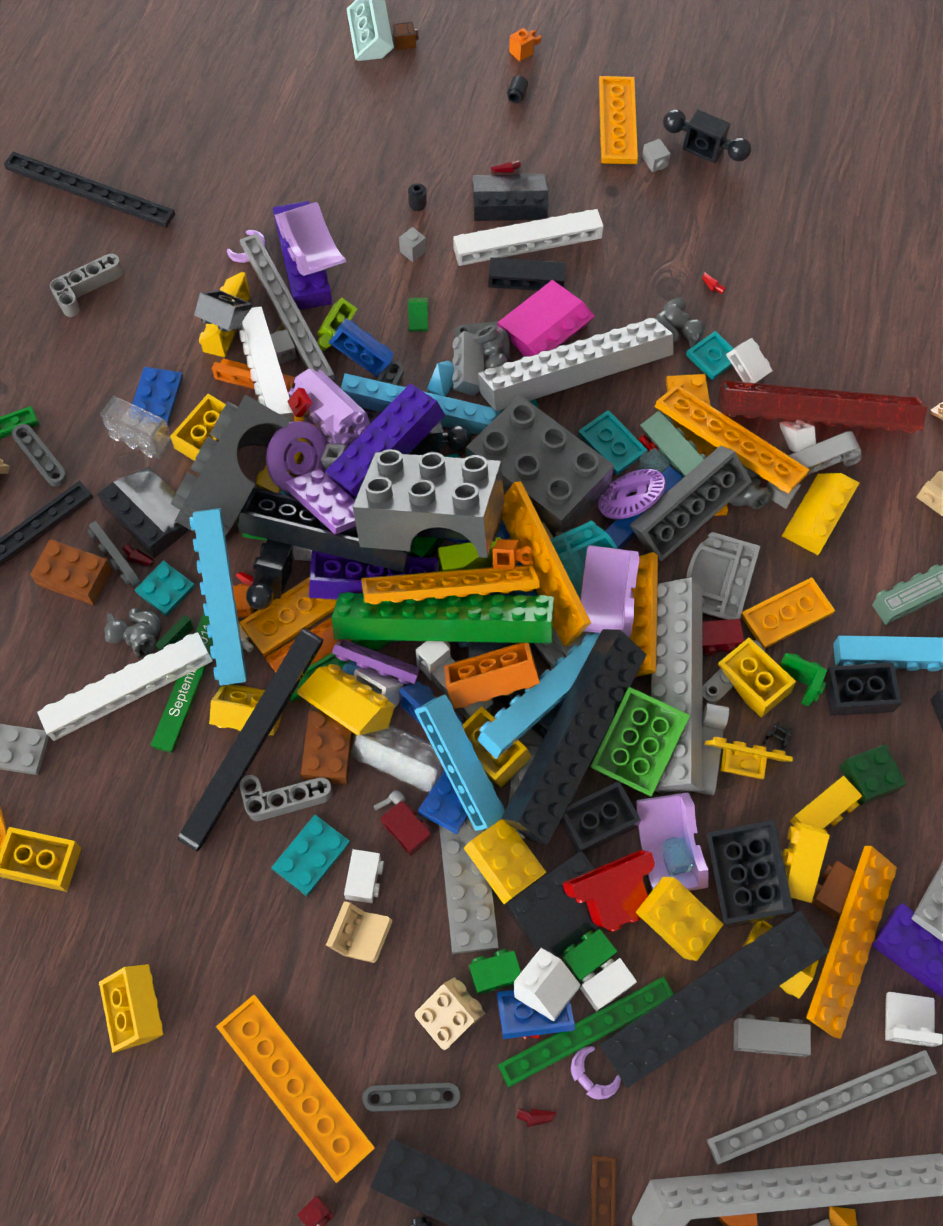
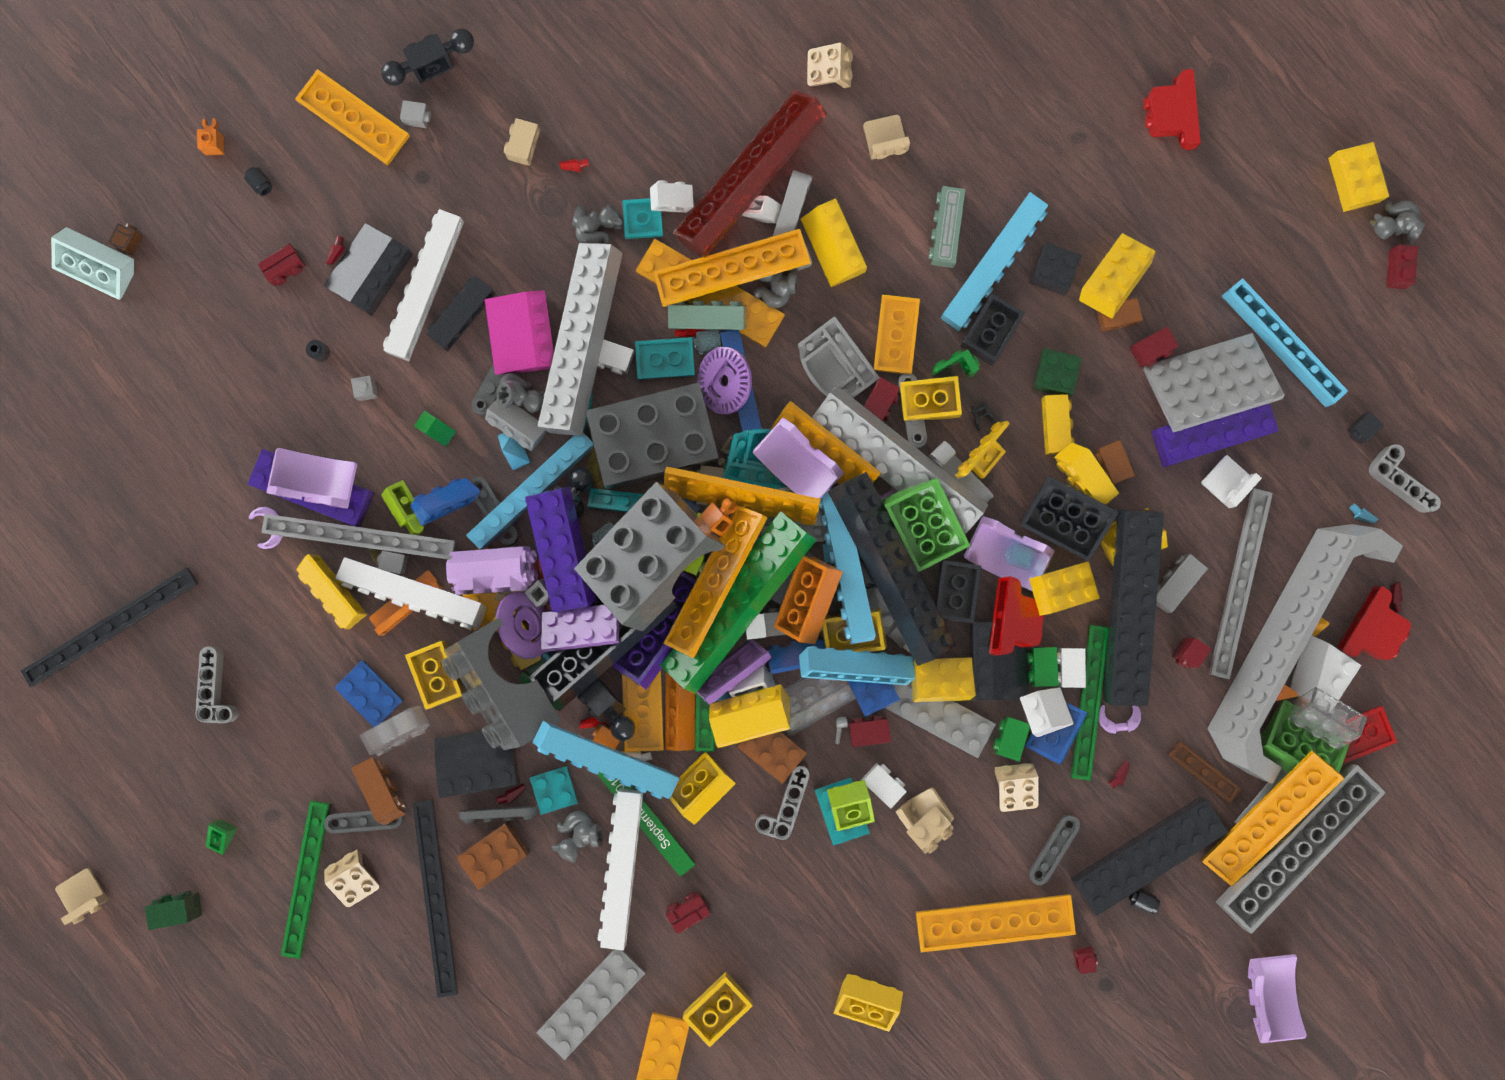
camera: 55 degrees left, 20 degrees up
(72, 443) = (379, 790): none -> dark orange brick
(119, 773) = (687, 912): none -> dark red brick
(176, 633) = (602, 807): dark green tile -> none
(222, 309) = (337, 597): slope -> none
(250, 740) = (733, 802): black beam -> none
(299, 402) = (477, 593): red plate -> none
(321, 852) = (851, 805): none -> lime slope
(346, 949) = (931, 830): none -> tan bracket
(465, 138) = (282, 265): none -> dark red brick
(582, 403) = (615, 357): none -> white brick
(691, 502) = (766, 343): dark grey brick -> none
(699, 236) = (522, 141): none -> tan brick
(713, 1097) = (1190, 653): none -> dark red brick
(852, 942) = (1156, 480): light orange plate -> none

